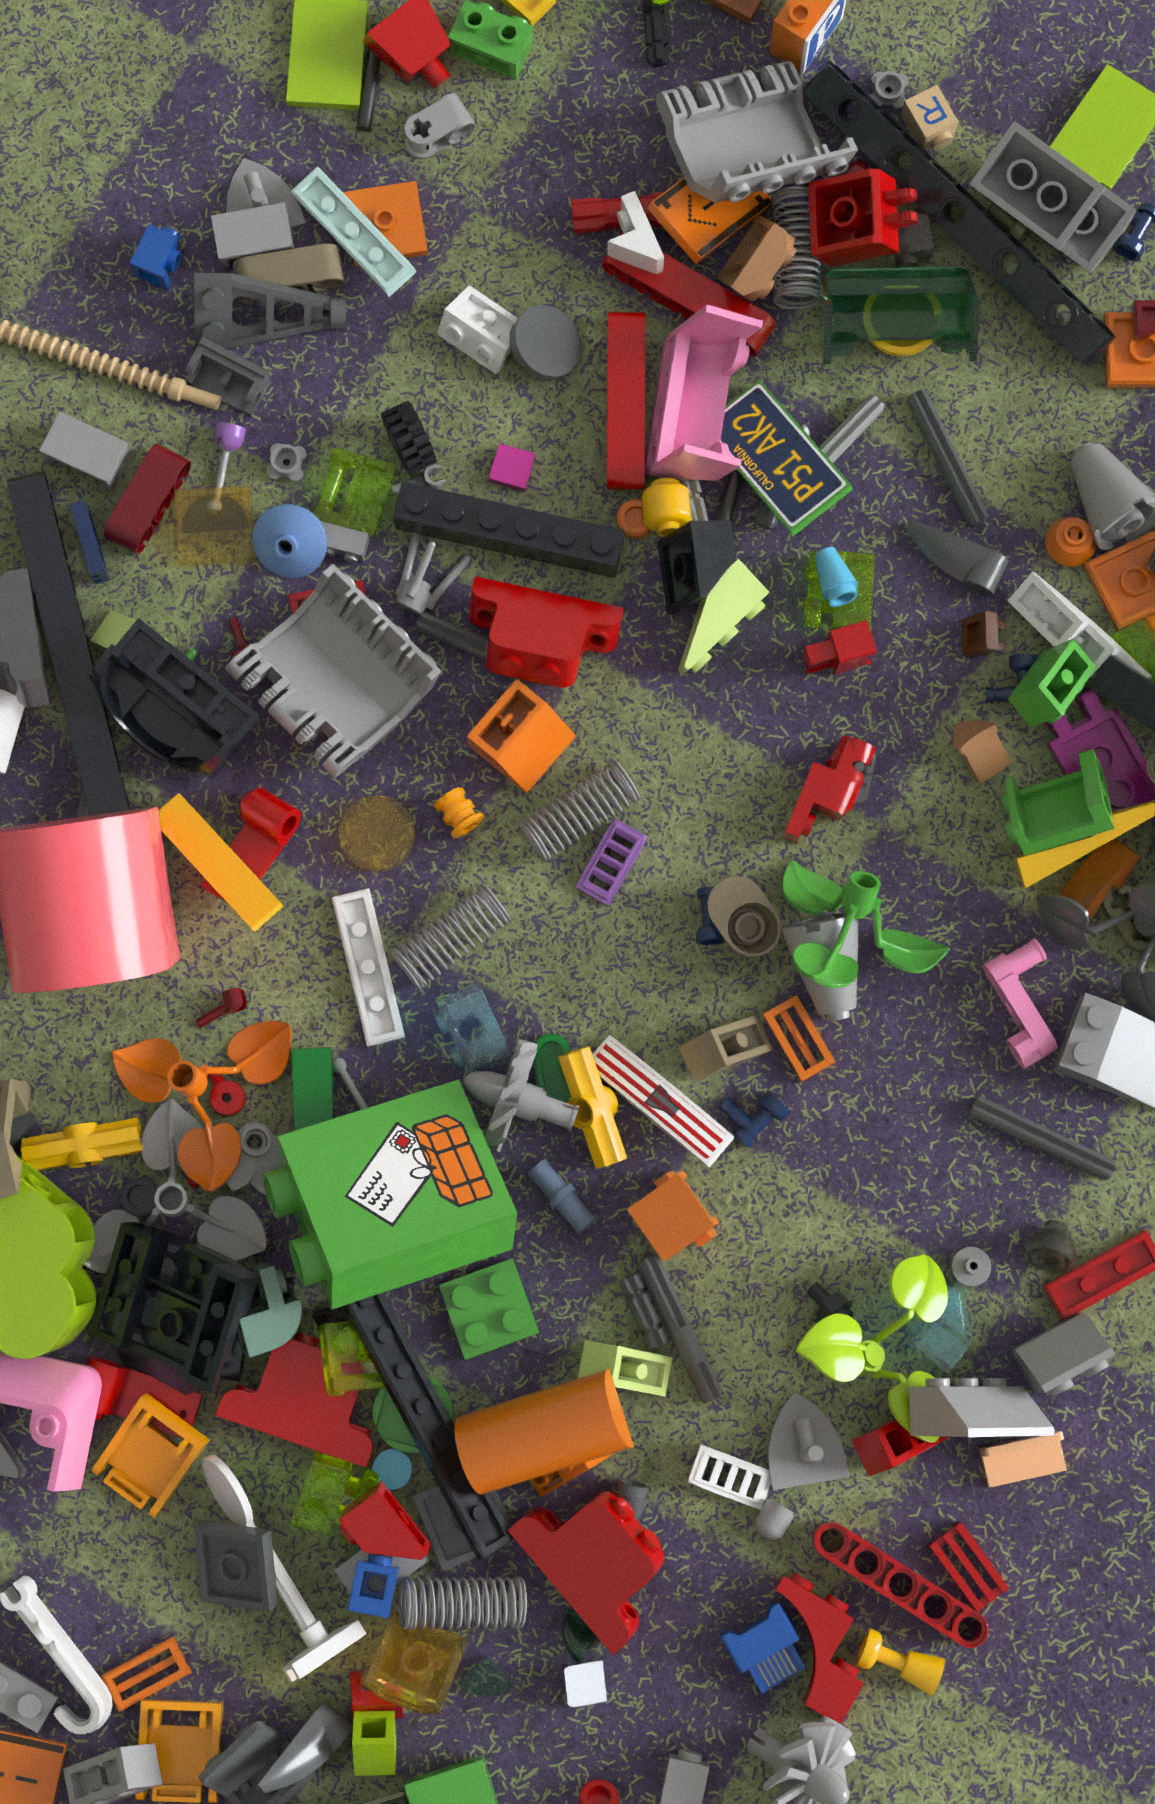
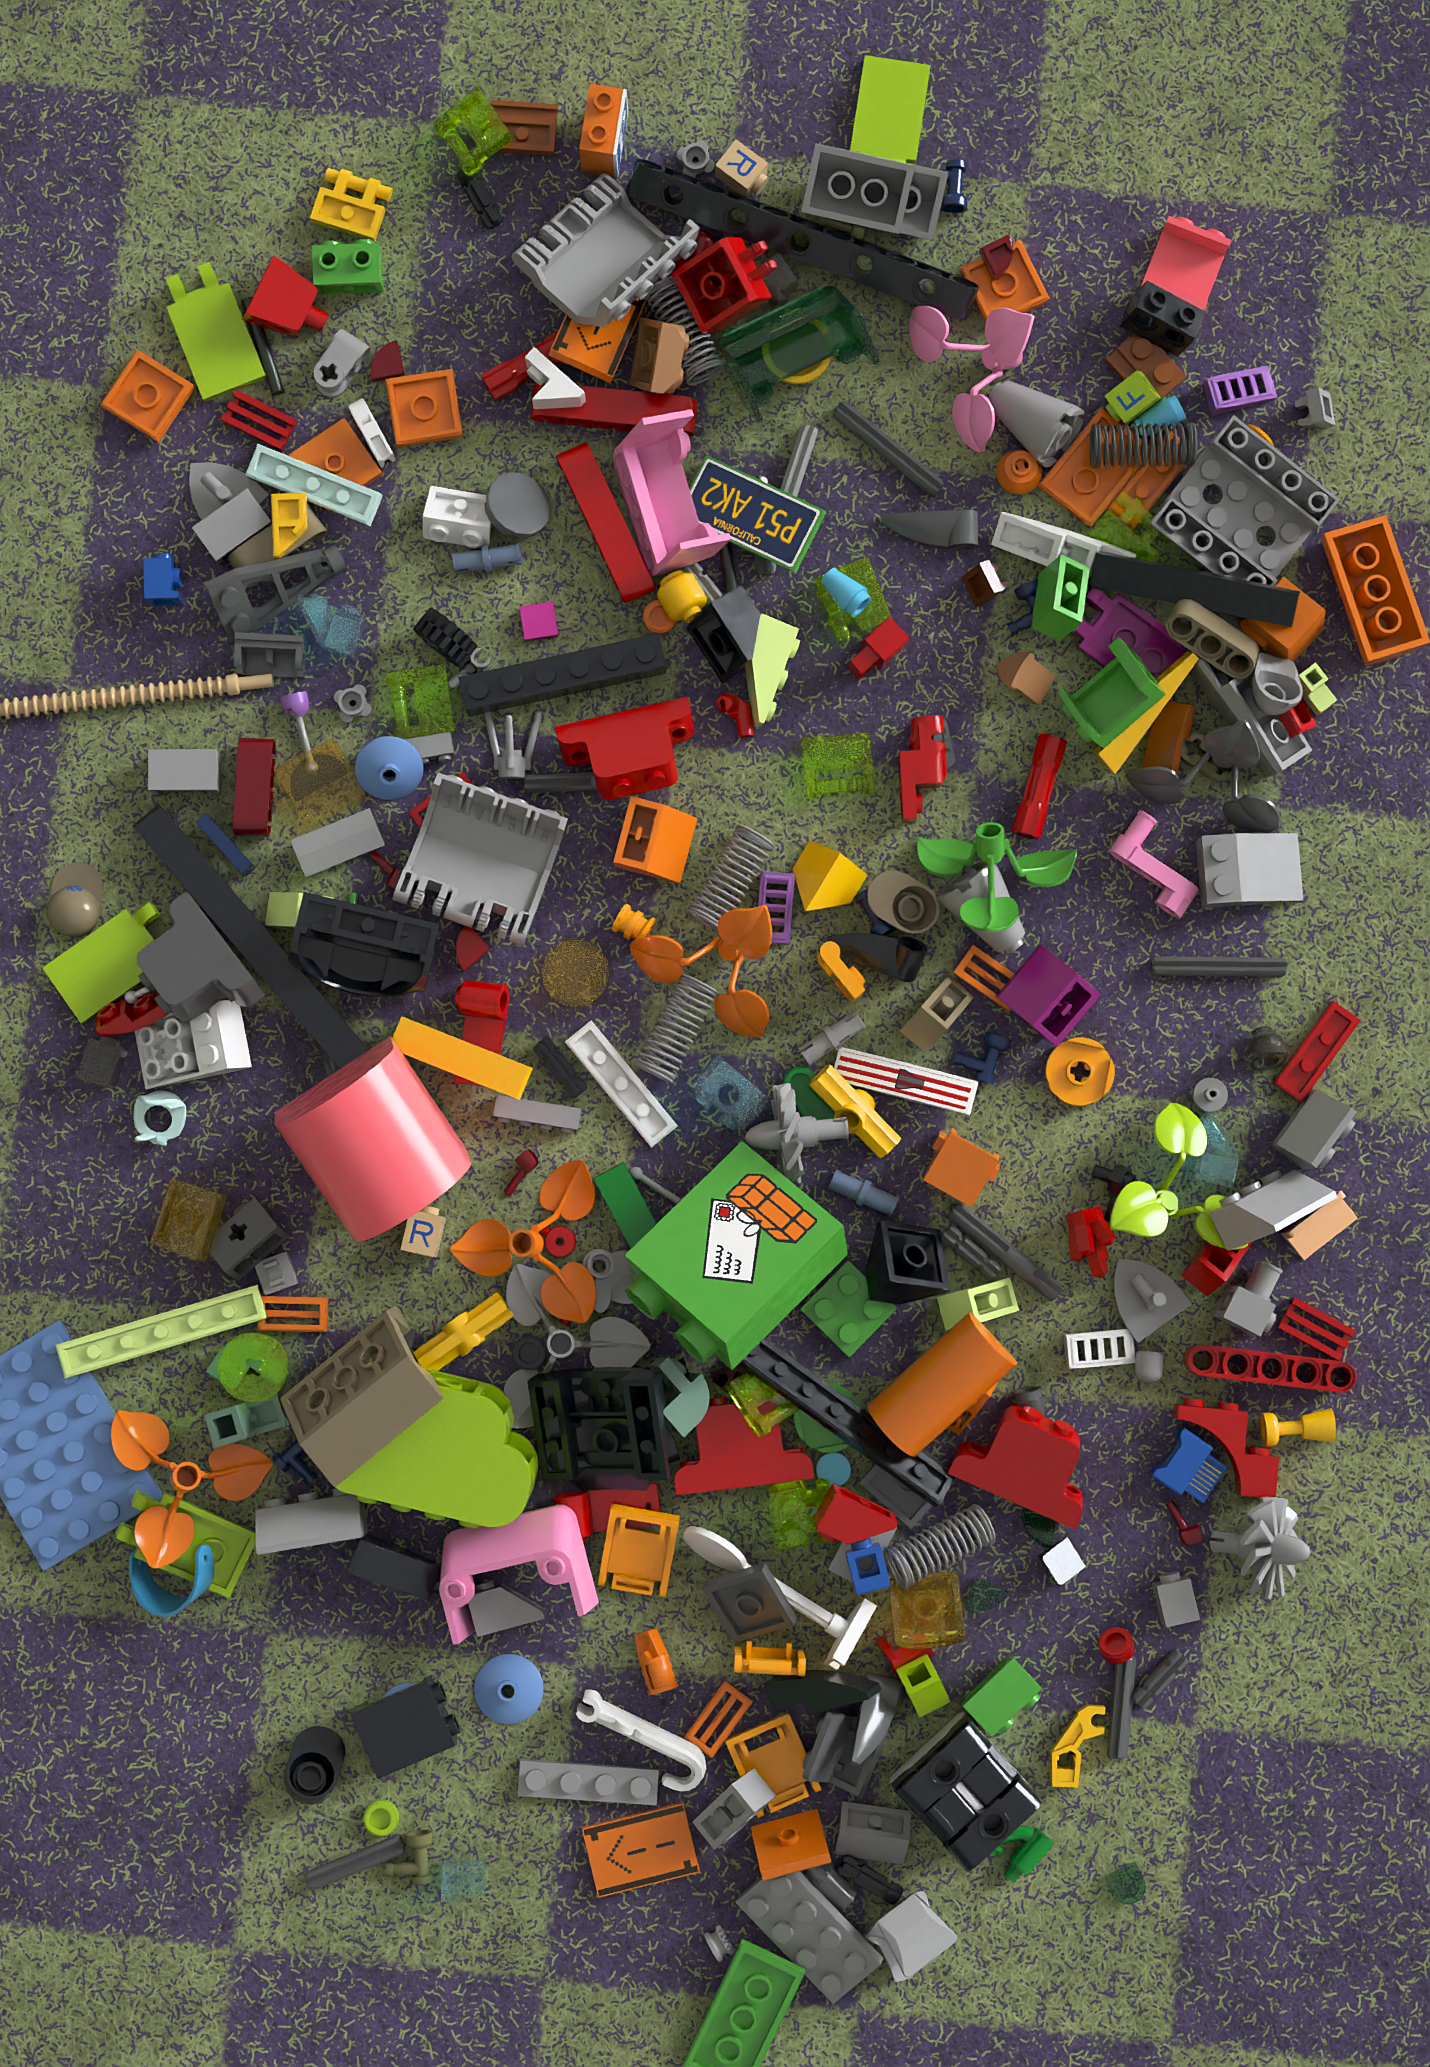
camera: 30 degrees left, 5 degrees up
(93, 1021) = (424, 1232): none -> tan brick
(109, 1581) = (654, 1662): none -> orange hinge
(202, 591) = (337, 842): none -> light grey piece
(225, 1635) = (769, 1660): none -> light orange container
(233, 73) = (147, 396): none -> orange plate
(262, 1693) = (819, 1690): none -> black slope
(268, 955) = (537, 1112): none -> light grey piece
(282, 758) = (469, 948): none -> red tile
(302, 379) = (334, 628): none -> clear light blue slope
(308, 252) = (288, 520): none -> yellow tile
(314, 124) = (234, 408): none -> red tile
(314, 921) = (560, 1067): none -> black axle
(435, 206) = (371, 432): none -> white piece
(485, 148) = (387, 363): none -> dark red tile
(490, 382) = (487, 558): none -> sand blue pin
(500, 207) = (424, 408): none -> orange plate
(560, 872) = (741, 933): none -> orange plant
(569, 1289) = (905, 1263): none -> black slope
(605, 1022) = (832, 1037): none -> light grey pin
(648, 967) = (847, 980): none -> light orange plate
(670, 648) = (738, 710): none -> red arm
(678, 857) = (826, 877): none -> yellow slope
(703, 964) = (887, 955): none -> black piece
(731, 1721) = (1188, 1535): none -> dark red hand
(750, 738) = (835, 754): none -> clear neon green plate
(774, 1356) = (1089, 1237): none -> red rock
(849, 1082) = (1048, 995): none -> magenta slope
(867, 1174) = (1095, 1060): none -> light orange plate
(908, 1508) = (1250, 1307): none -> light grey brick
(948, 858) = (1039, 786): none -> red axle
(1118, 391) = (1007, 338): none -> bright pink plant

